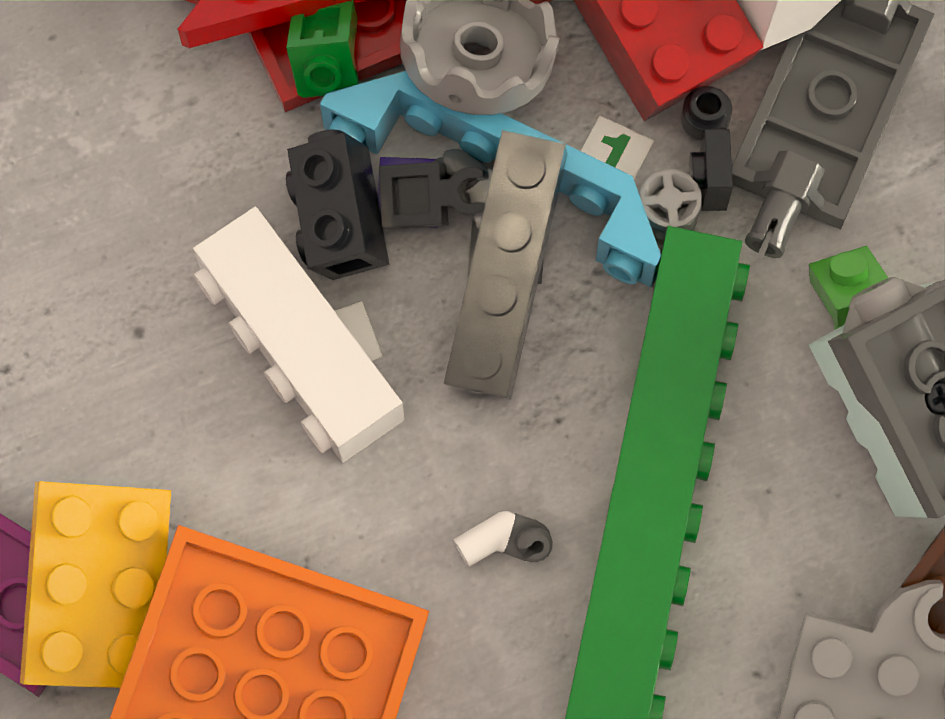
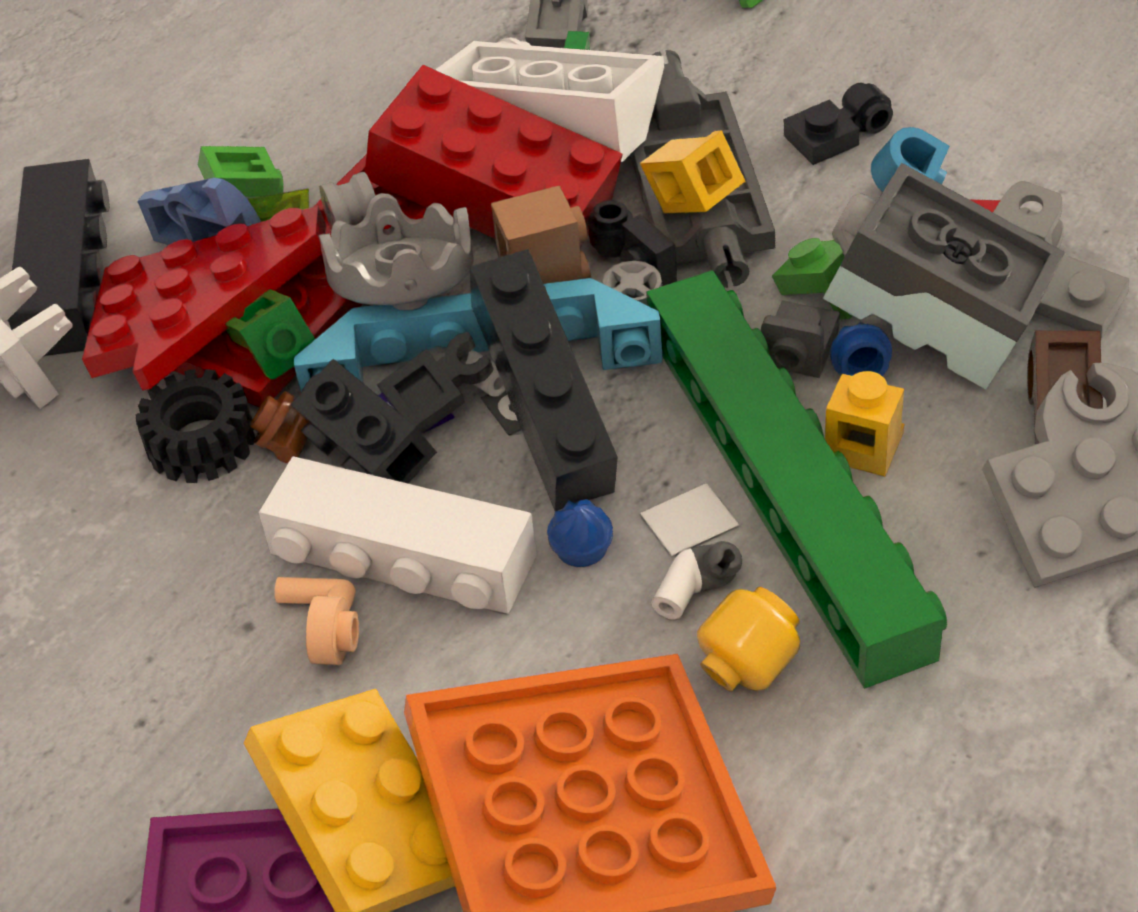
camera: 30 degrees left, 25 degrees down
(188, 390) = (330, 623): none -> light nougat plate
(222, 130) = (202, 448): none -> black tyre
(274, 140) = (279, 427): none -> dark orange plate
(445, 431) = (580, 533): none -> blue plate
(493, 637) = (748, 639): none -> yellow head
(549, 472) = (689, 519): none -> white sticker
(610, 114) = (548, 229): none -> medium nougat brick
(751, 490) = (869, 407): none -> yellow brick
(776, 350) = (801, 337): none -> dark grey bracket
(799, 124) = (692, 173): none -> yellow brick
(812, 409) = (860, 350): none -> blue plate

